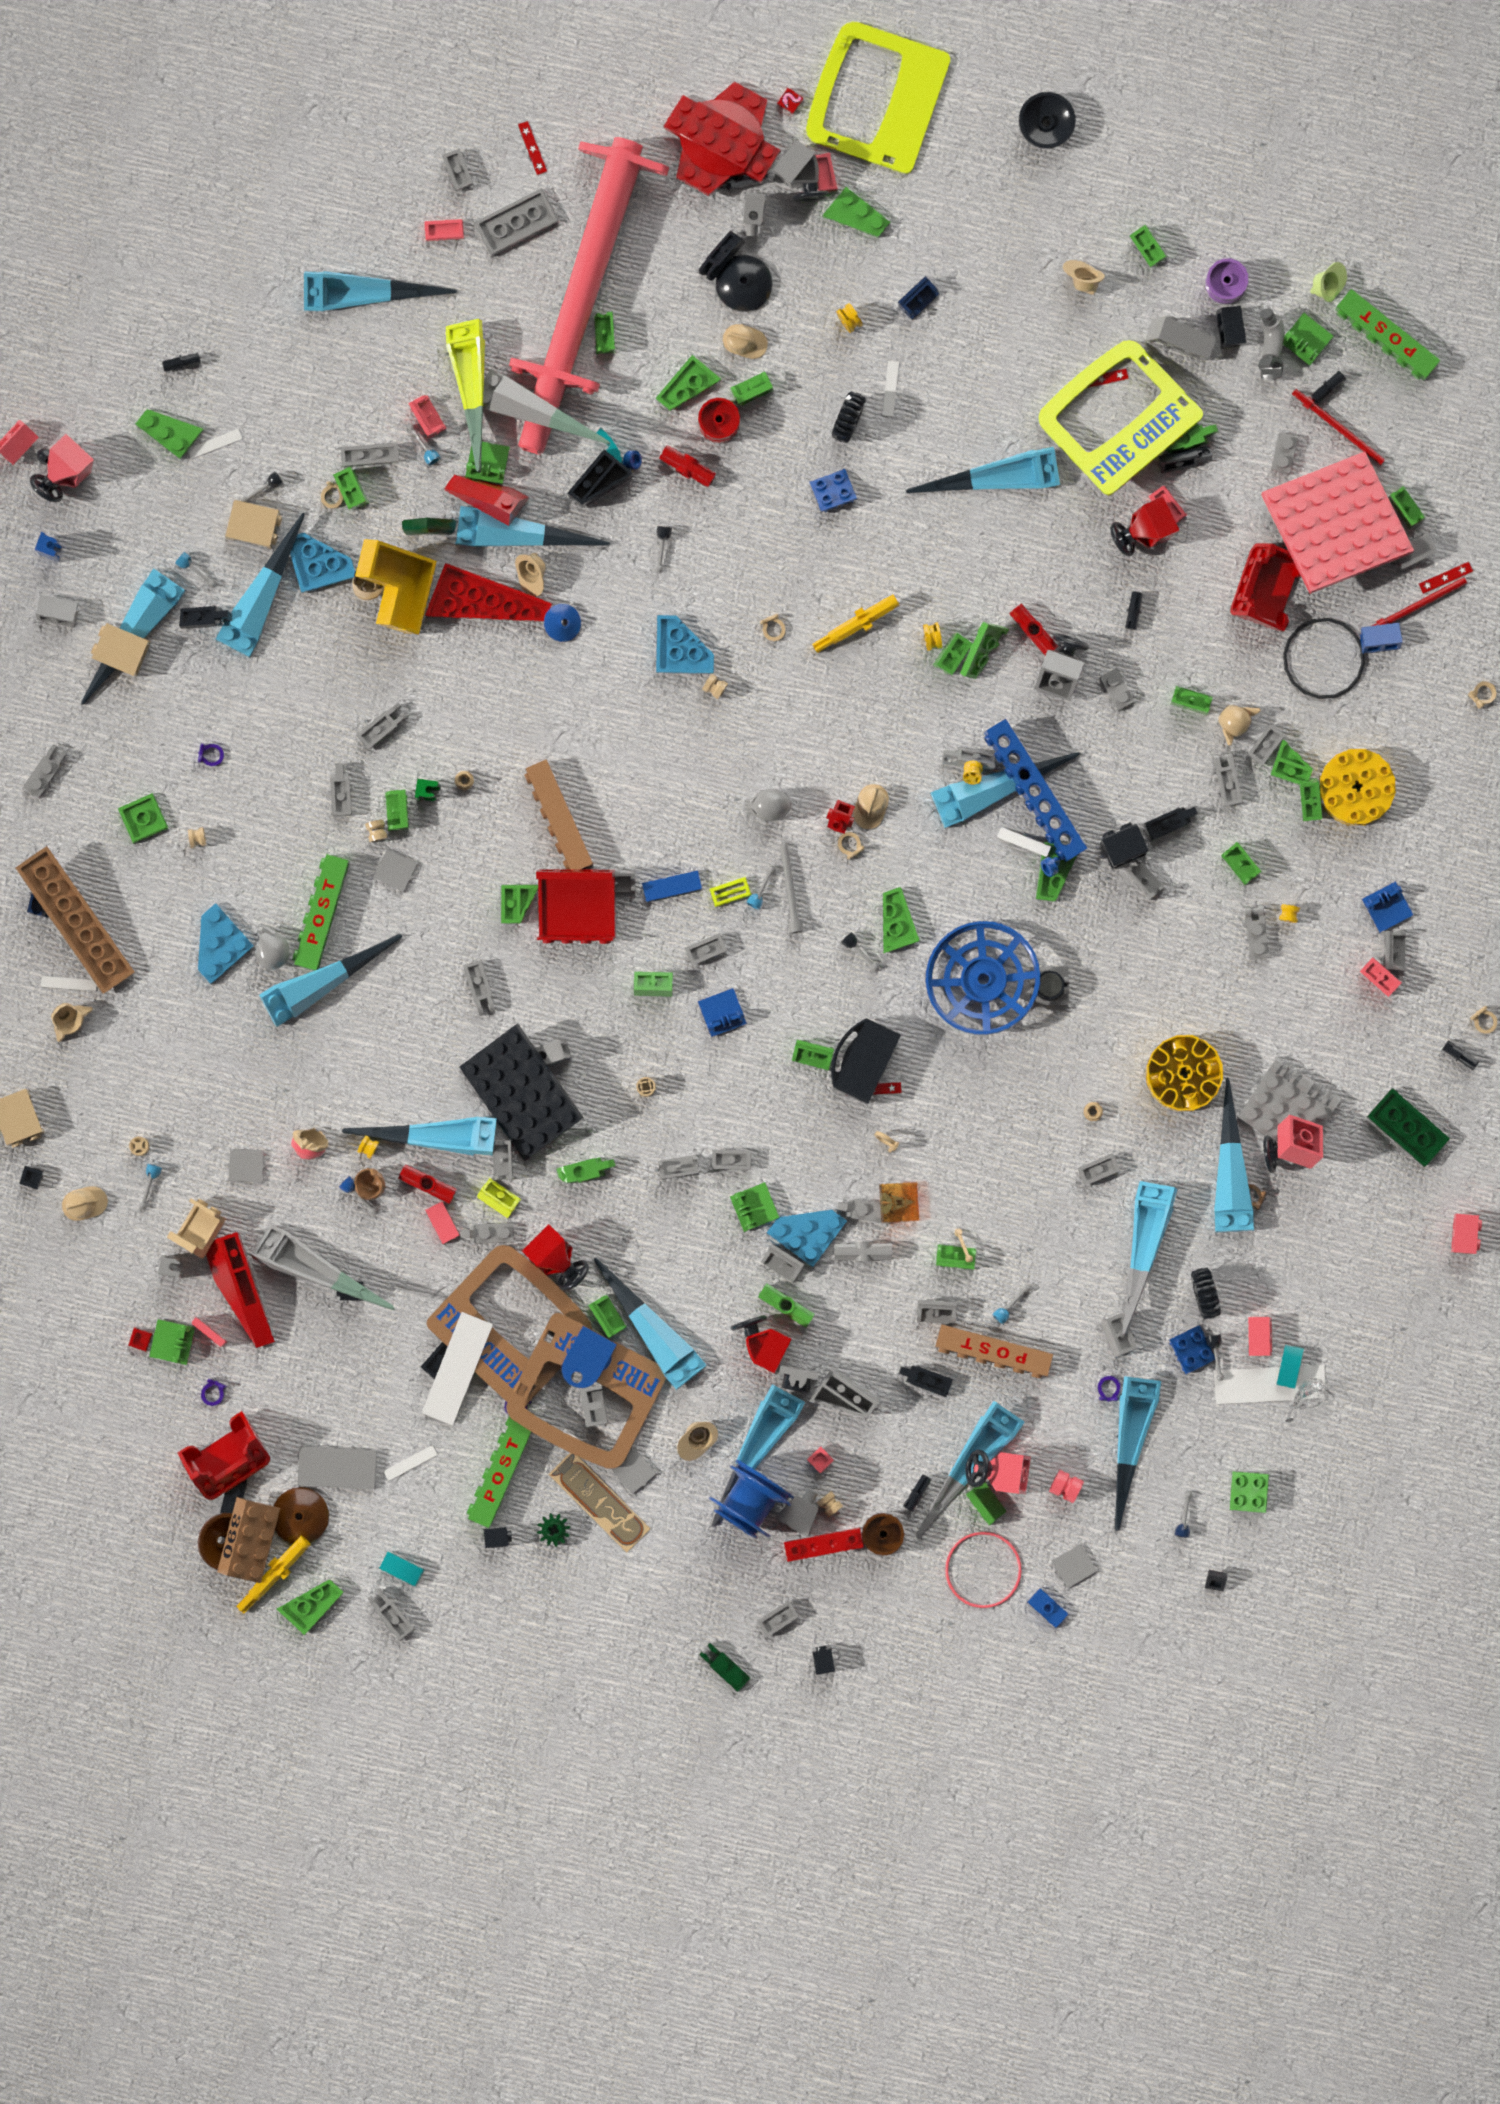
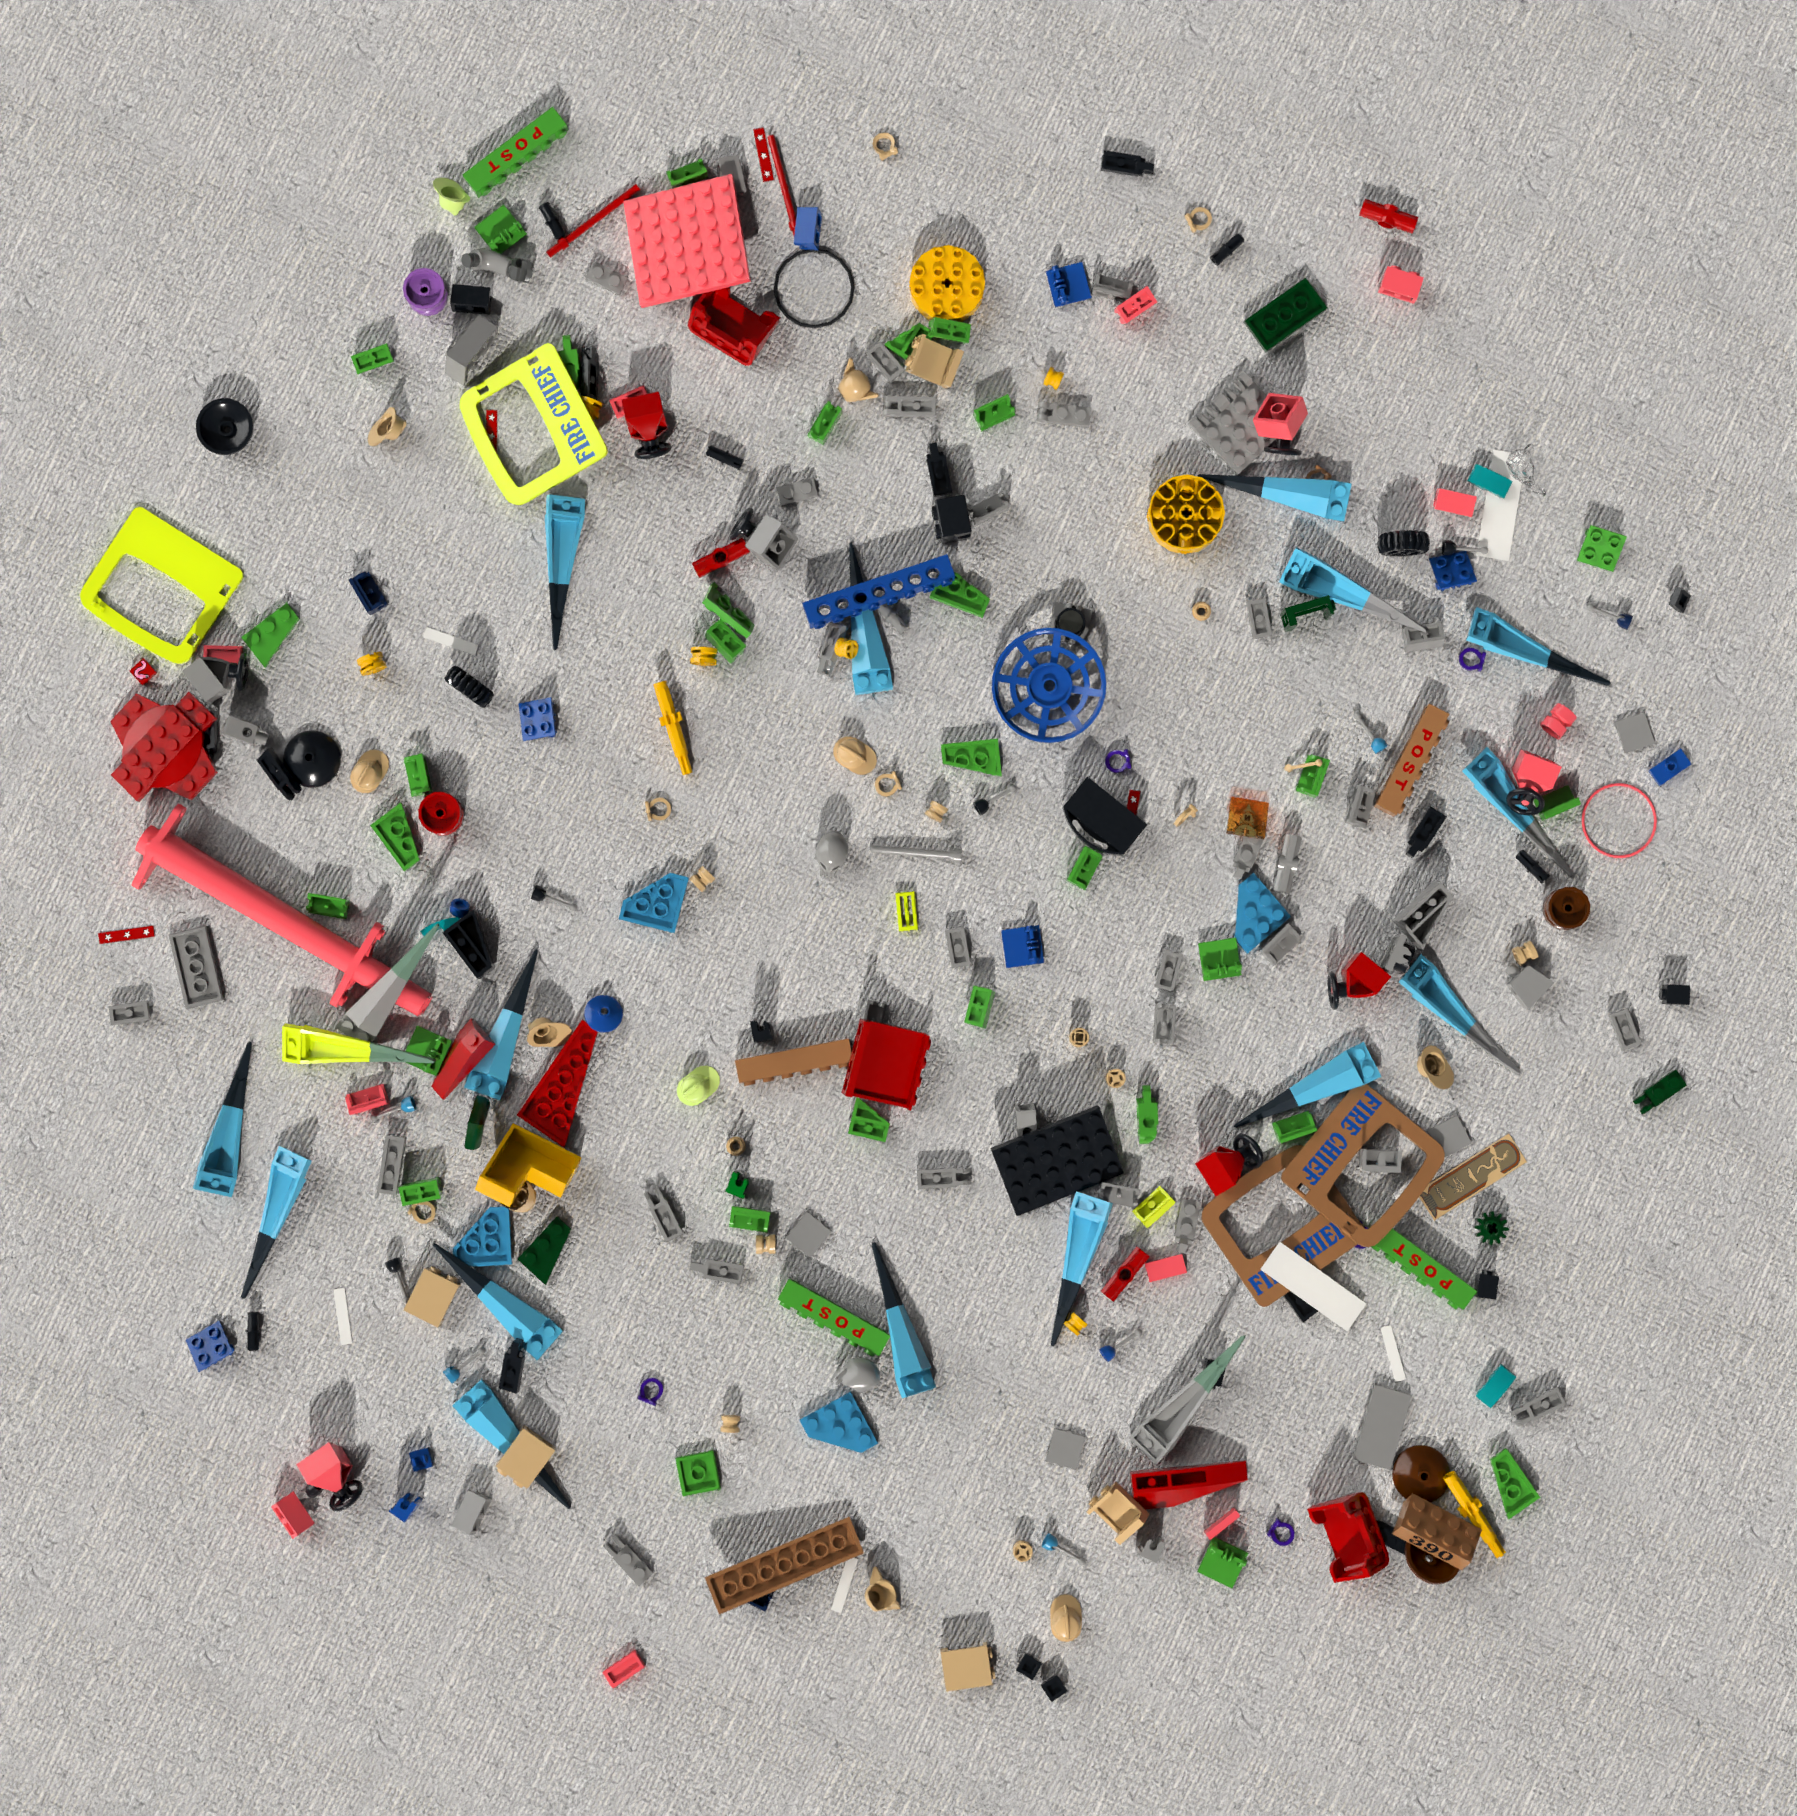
camera: 85 degrees left, 0 degrees up
(16, 1206) = (1054, 1687): none -> black plate
(96, 551) = (421, 1459): none -> blue tile
(140, 1339) = (1213, 1593): red tile -> none
(157, 324) = (209, 1346): none -> blue hinge
(169, 432) = (320, 1359): bright green wing -> none
(309, 1143) = (1059, 1381): tan hair -> none
(322, 621) = (545, 1250): none -> dark green wing
(325, 357) = (284, 1186): none -> medium azure plate
(369, 1184) = (1112, 1331): medium nougat hair -> none
(444, 230) = (186, 1040): coral tile -> none
(514, 730) = (698, 1085): none -> yellowish green piece
(578, 777) = (762, 1035): none -> black hinge
(588, 1357) = (1331, 1156): blue tile -> none
(614, 1131) = (1117, 1076): none -> tan wheel
(672, 886) = (887, 966): blue tile -> none
(687, 466) = (478, 855): red piece -> none
(751, 1500) = (1509, 1028): blue wheel -> none
(756, 900) = (920, 888): hinge -> none
(775, 1298) = (1331, 942): bright green piece -> none
(820, 1459) = (1479, 952): coral plate -> none
(823, 1544) = (1565, 967): red fence -> none
(834, 897) = (936, 811): none -> tan wheel
(840, 816) = (859, 786): red brick -> none
(924, 1074) = (1128, 760): none -> dark purple piece
(1014, 811) = (893, 618): none -> light grey pin
(1024, 842) = (924, 615): white sticker -> none
(1050, 866) = (955, 594): blue tile -> none
(1118, 1211) = (1290, 613): none -> dark green panel
(1151, 470) = (593, 406): none -> yellow wheel
(1277, 791) = (933, 361): none -> tan panel

